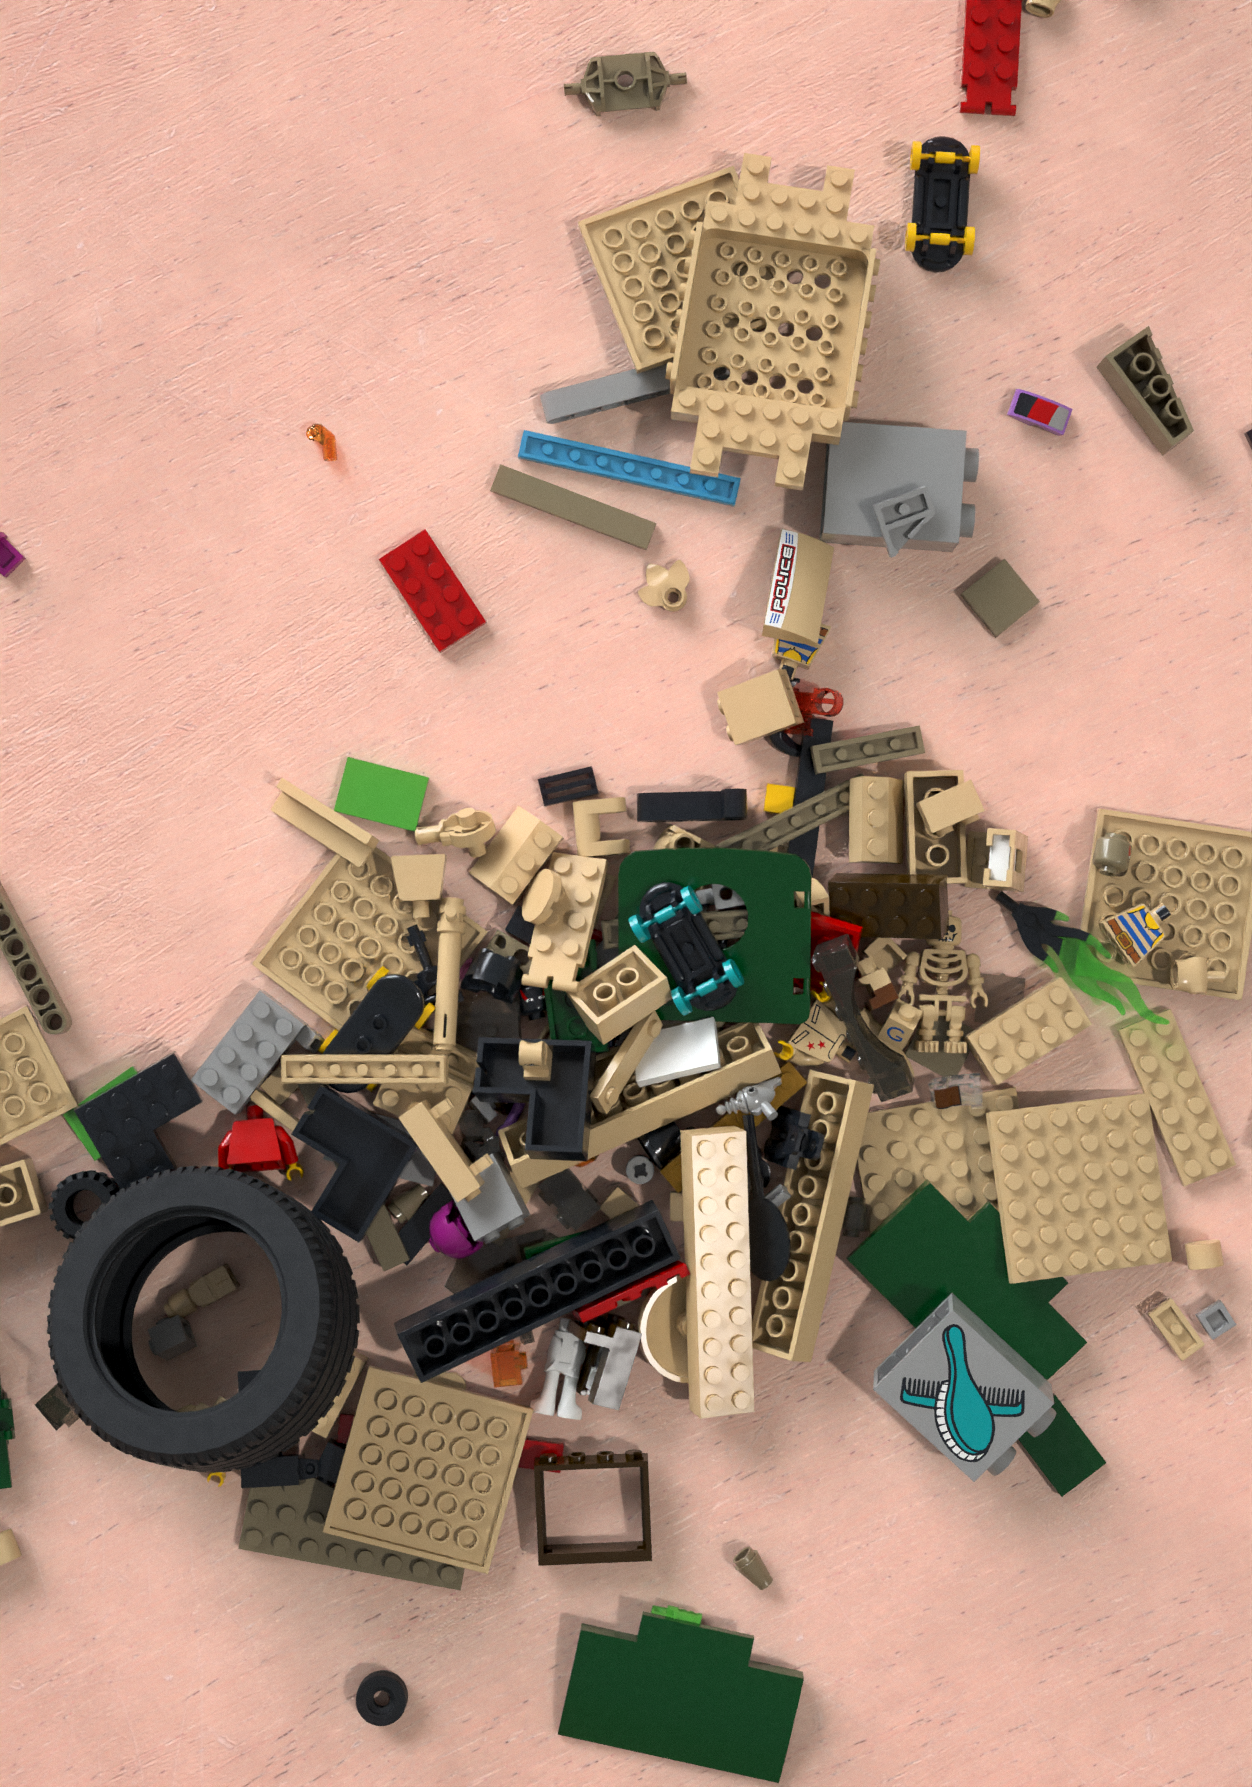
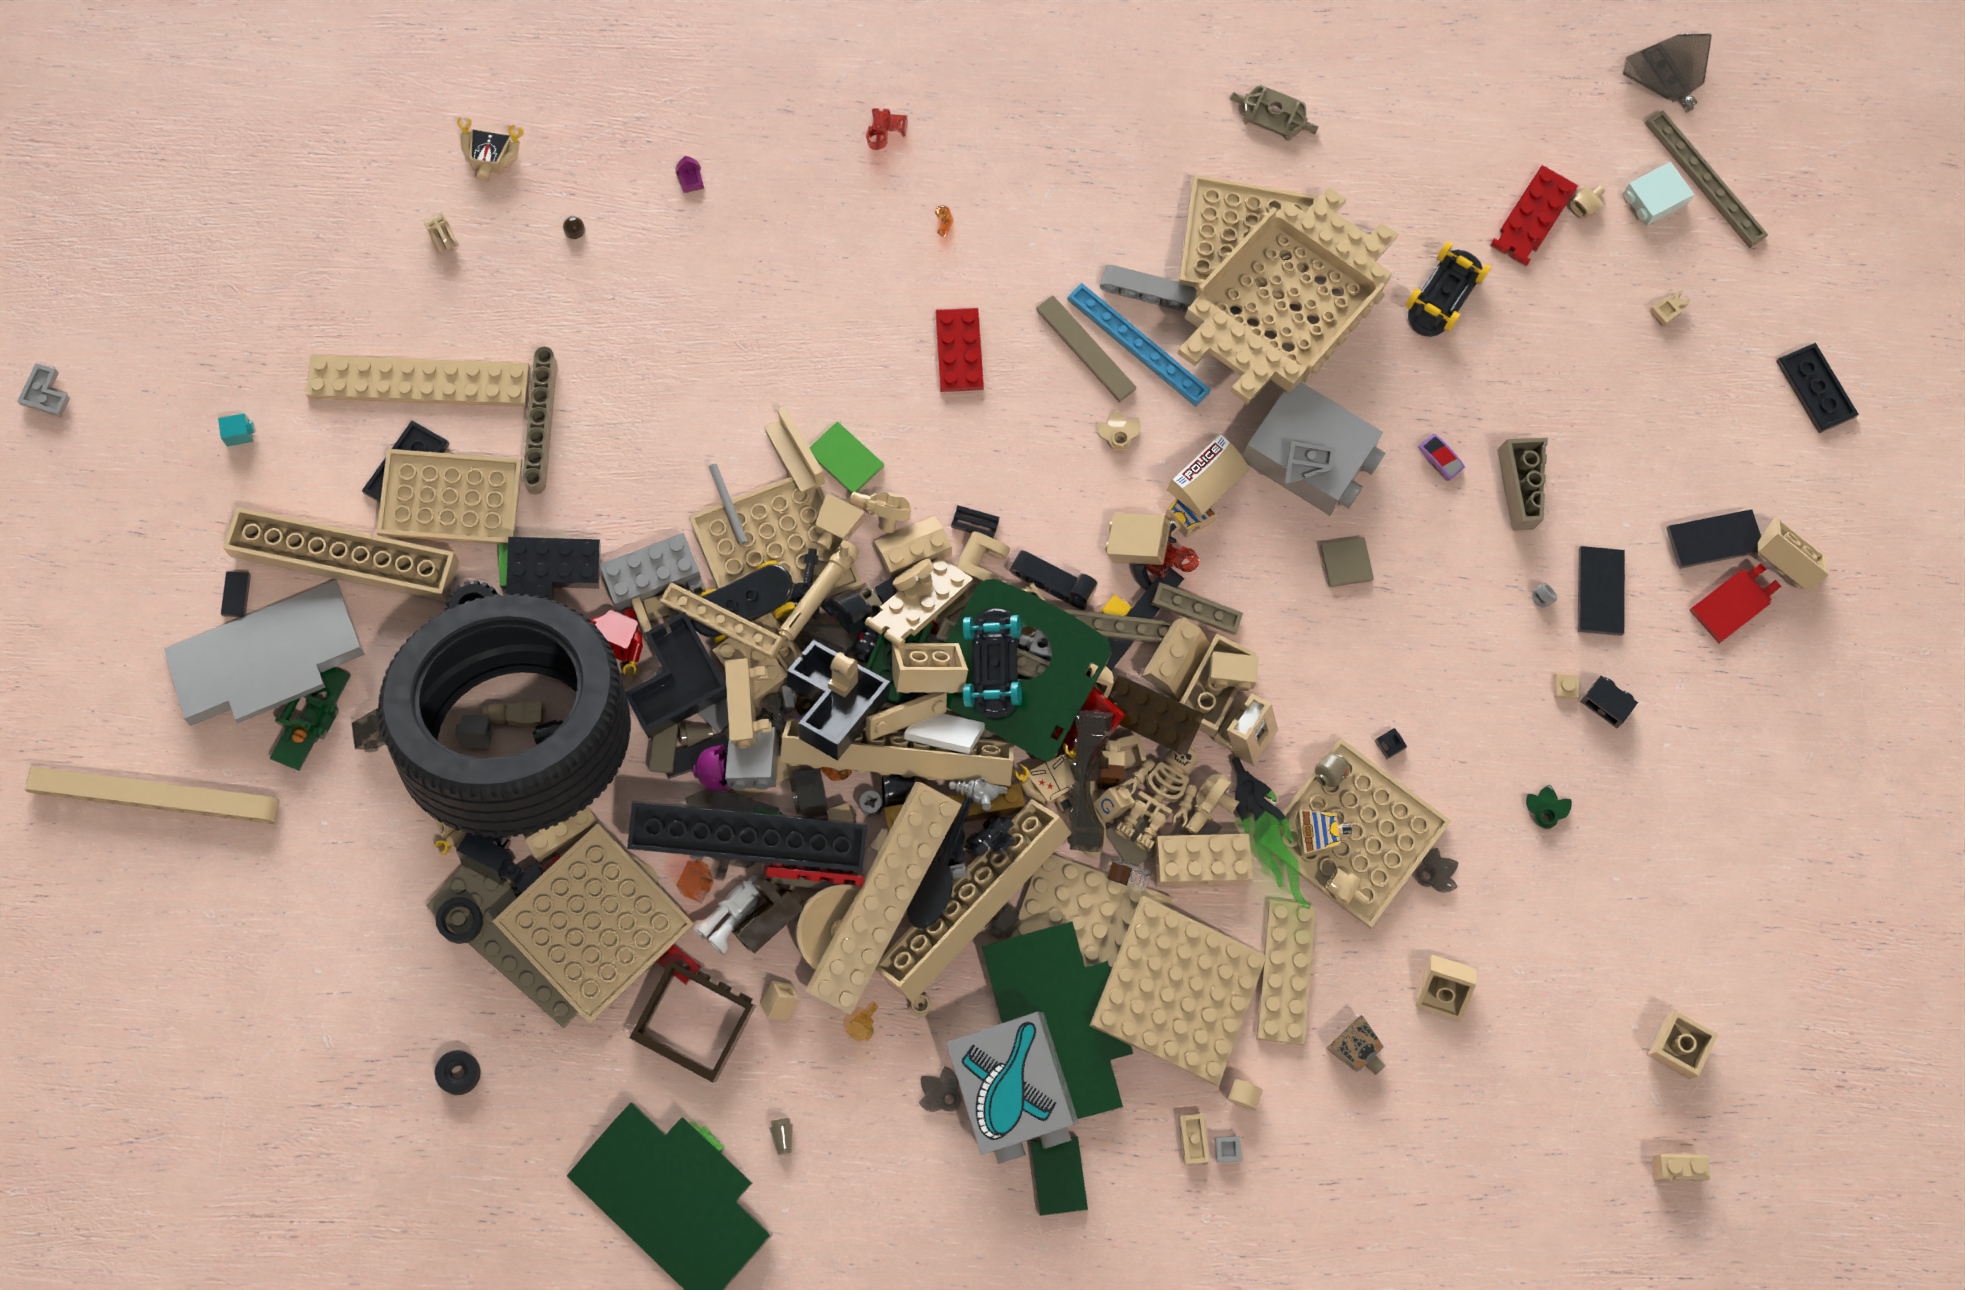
camera: 25 degrees right, 15 degrees down
(186, 358) = (886, 122): none -> clear red piece
(252, 1291) = (545, 730): none -> black brick
(283, 1569) = (450, 904): none -> black tyre
(287, 926) = (728, 504): none -> light grey piece
(668, 1433) = (780, 1000): none -> tan panel
(768, 1410) = (861, 1026): none -> clear yellow piece
(822, 1357) = (921, 1011): none -> tan plate
(884, 1429) = (938, 1089): none -> clear smoke plate
(996, 960) = (1209, 796): none -> tan pin
(1155, 781) = (1391, 743): none -> black tile
(1202, 79) = (1669, 308): none -> tan plate
(1235, 513) = (1546, 593): none -> light grey tile

